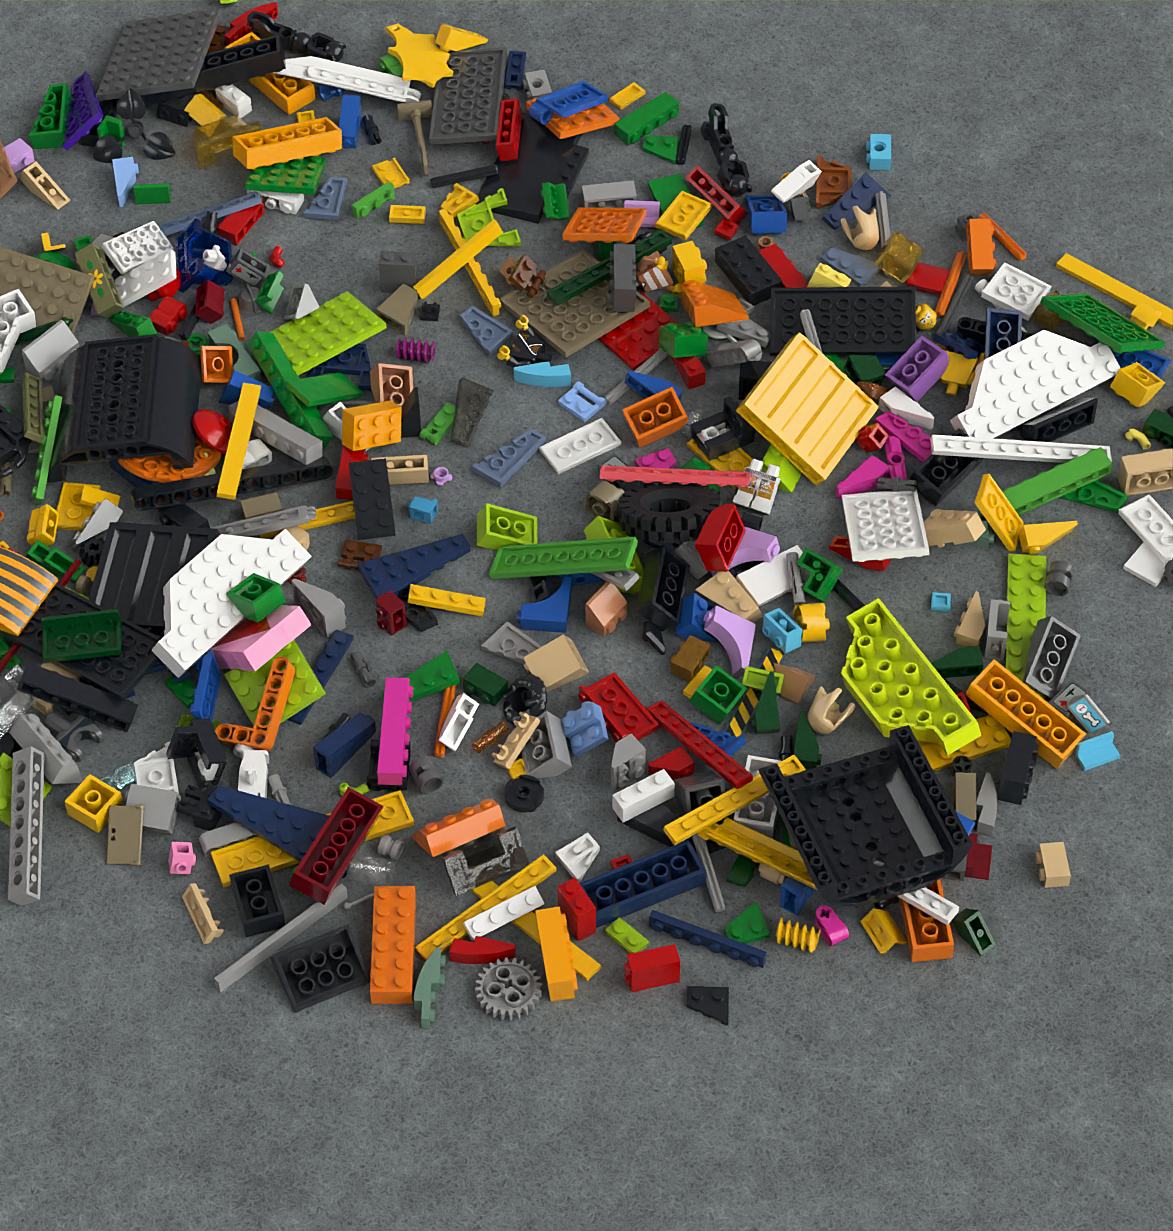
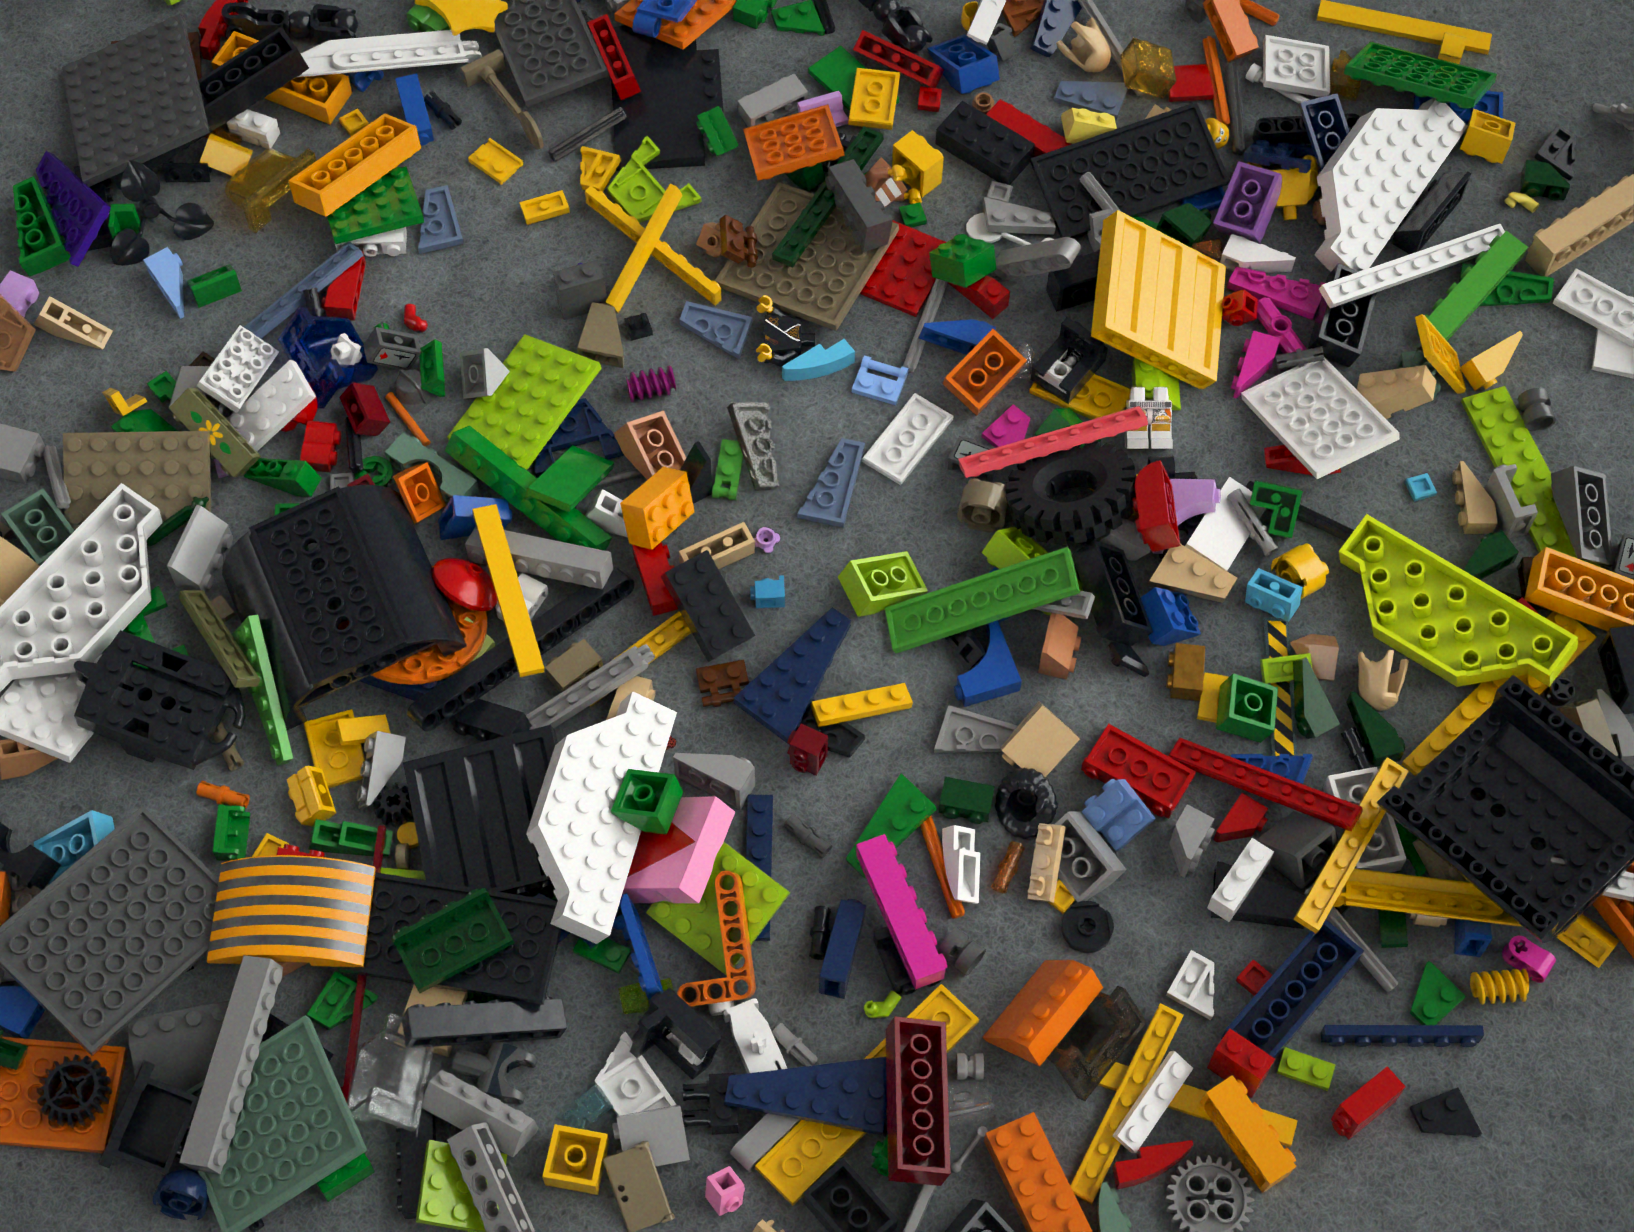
camera: 25 degrees left, 10 degrees up
(373, 200) = (496, 202): bright green plate -> none
(710, 304) = (970, 204): orange slope -> none
(734, 634) = (1226, 624): lavender arch -> none

